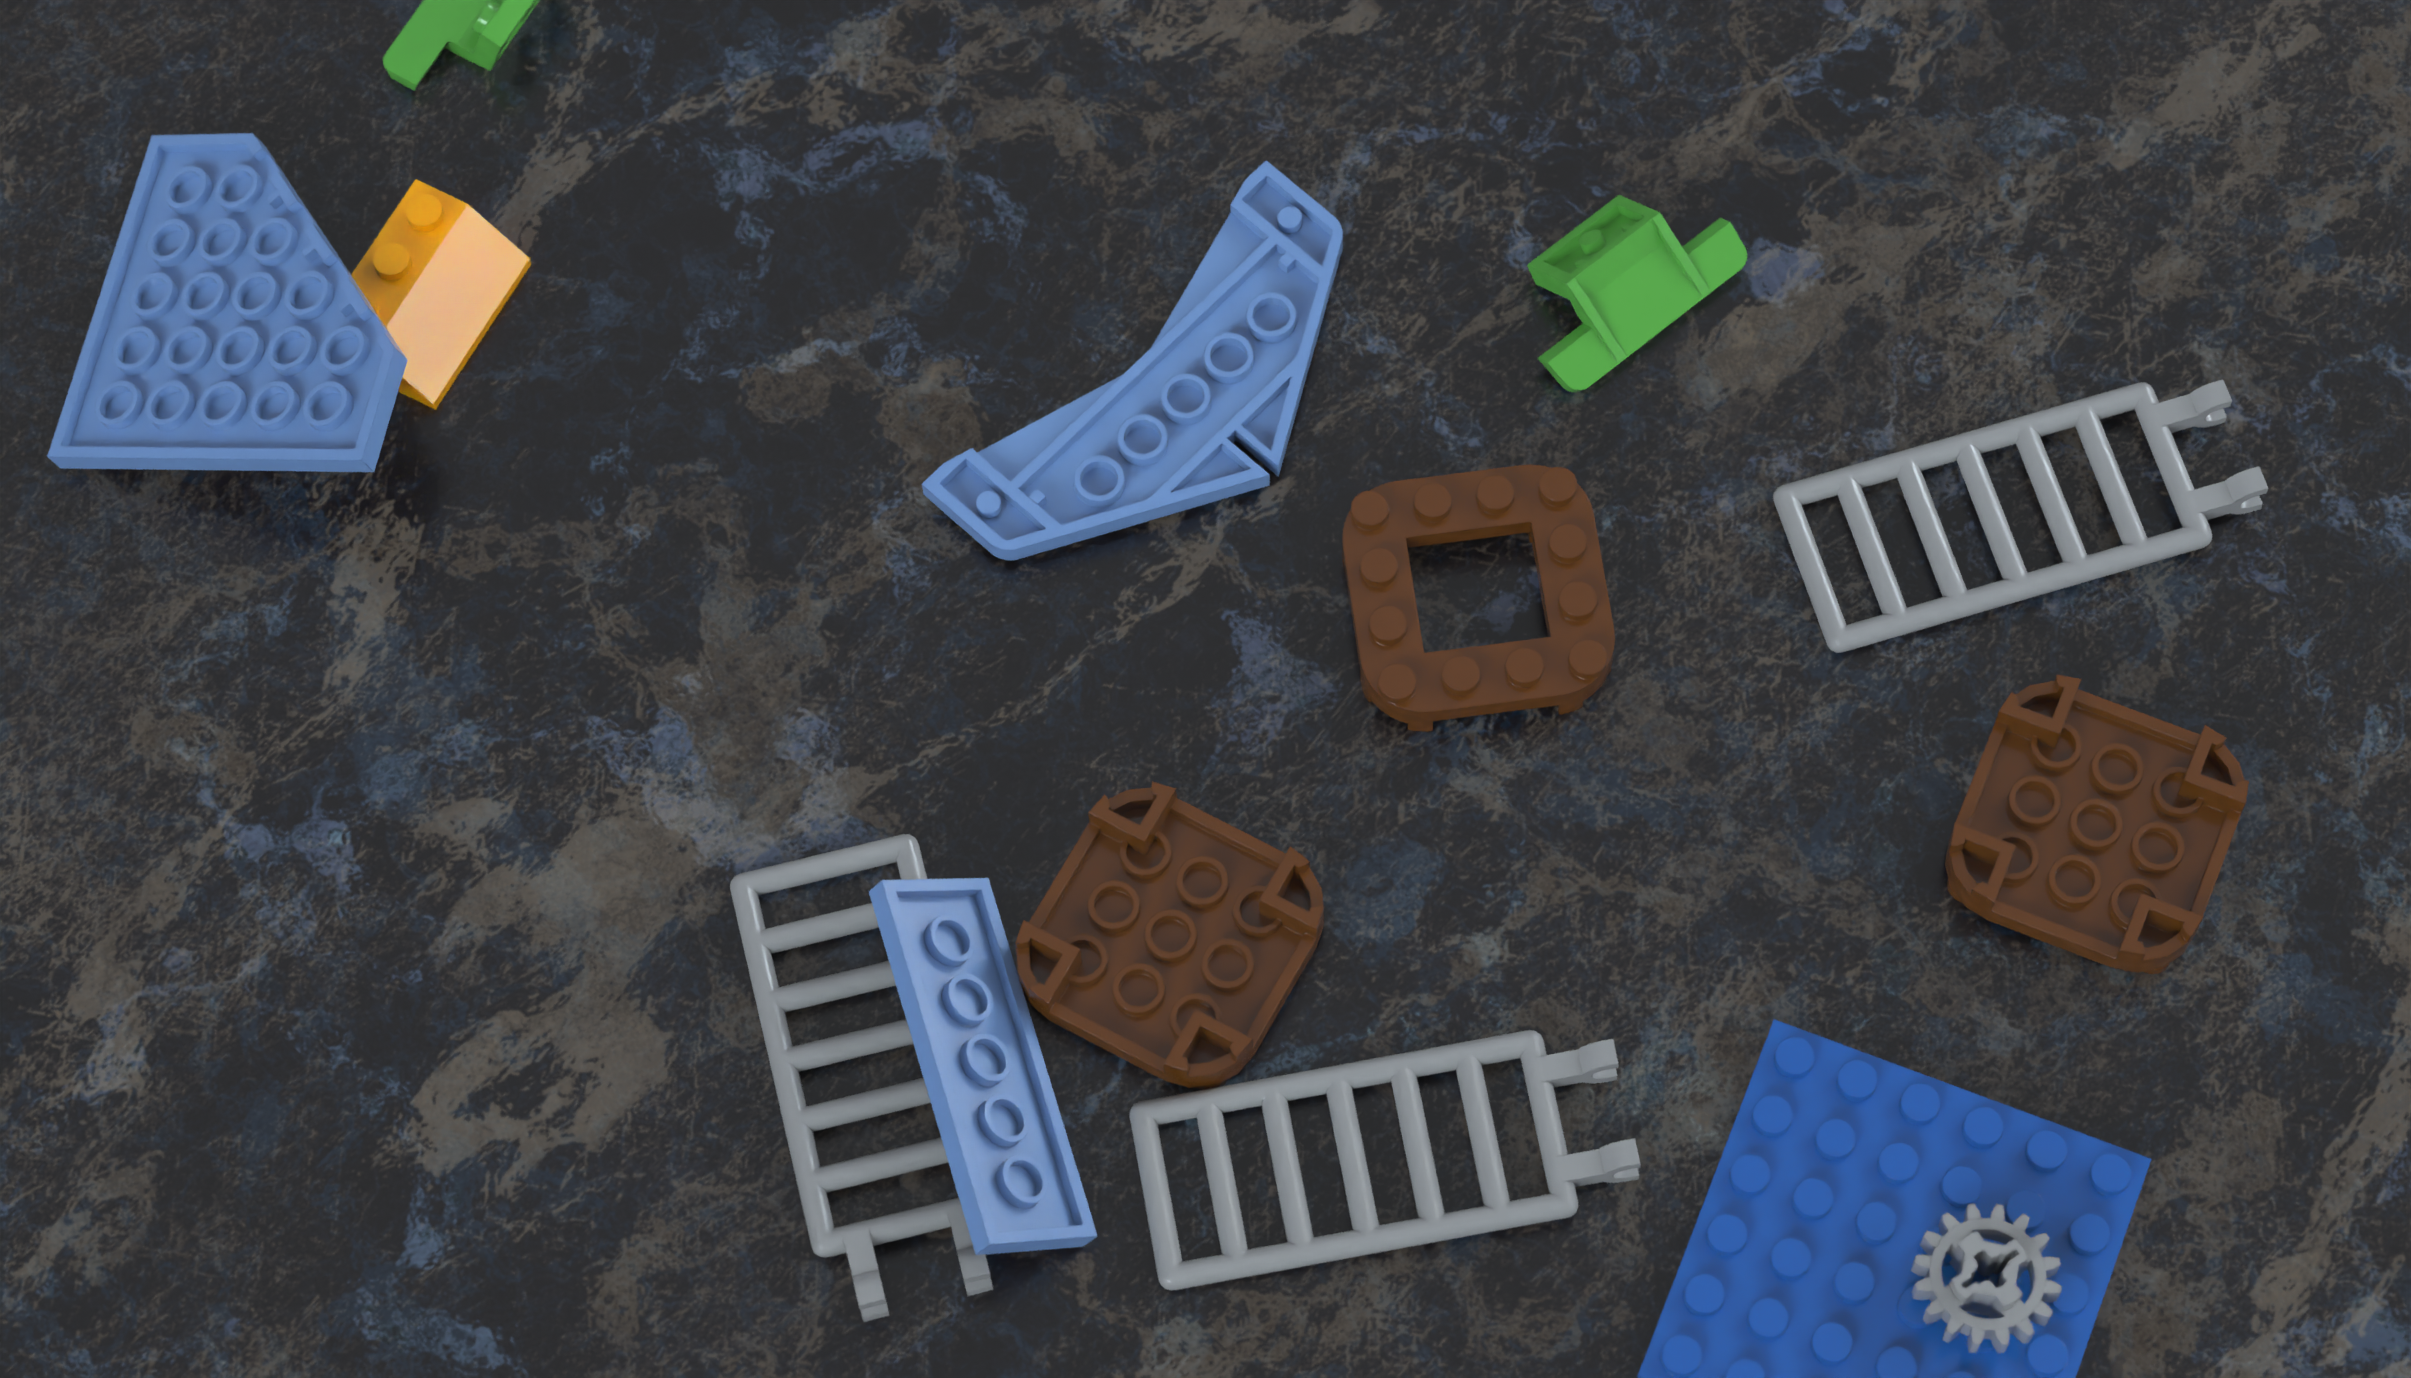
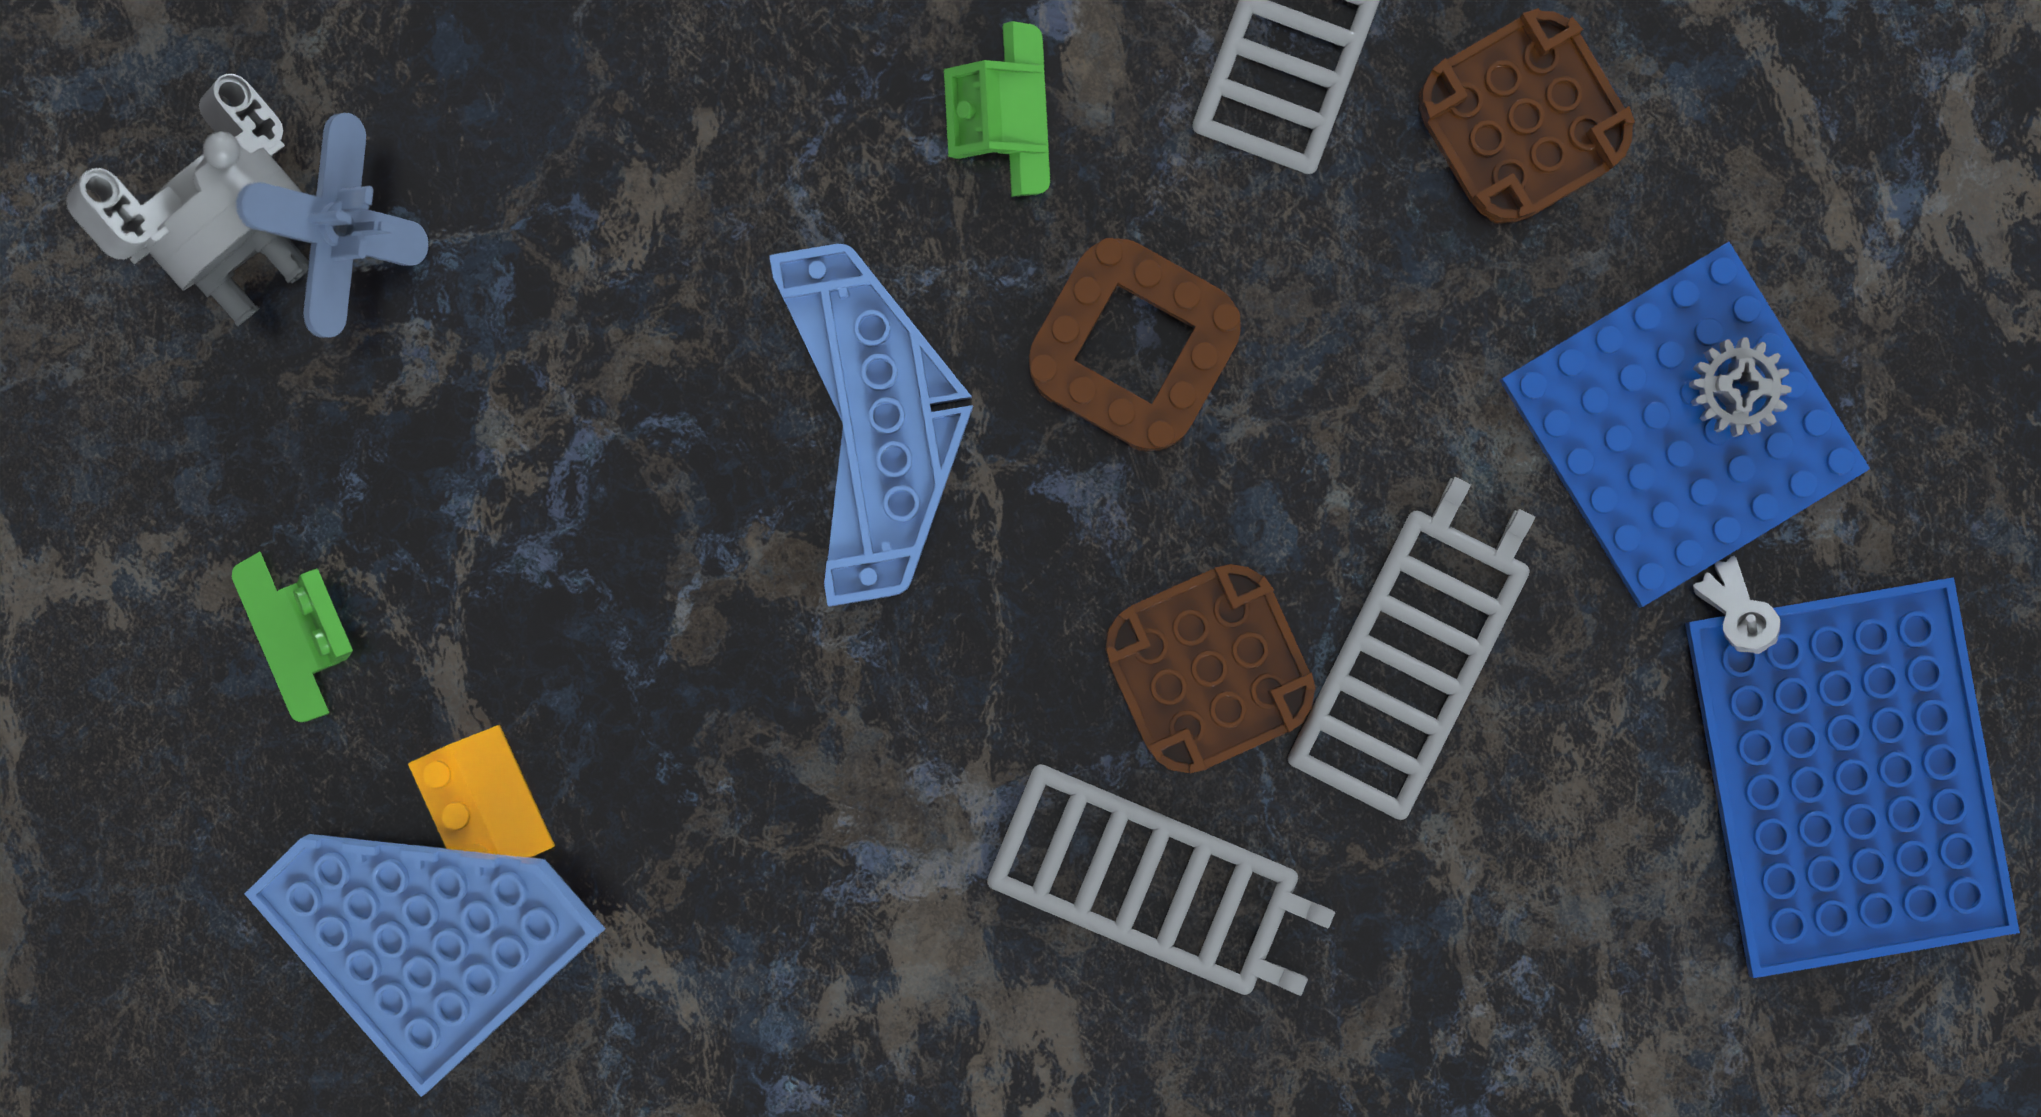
camera: 55 degrees left, 20 degrees up
(982, 1065) = (1211, 829): medium blue plate -> none

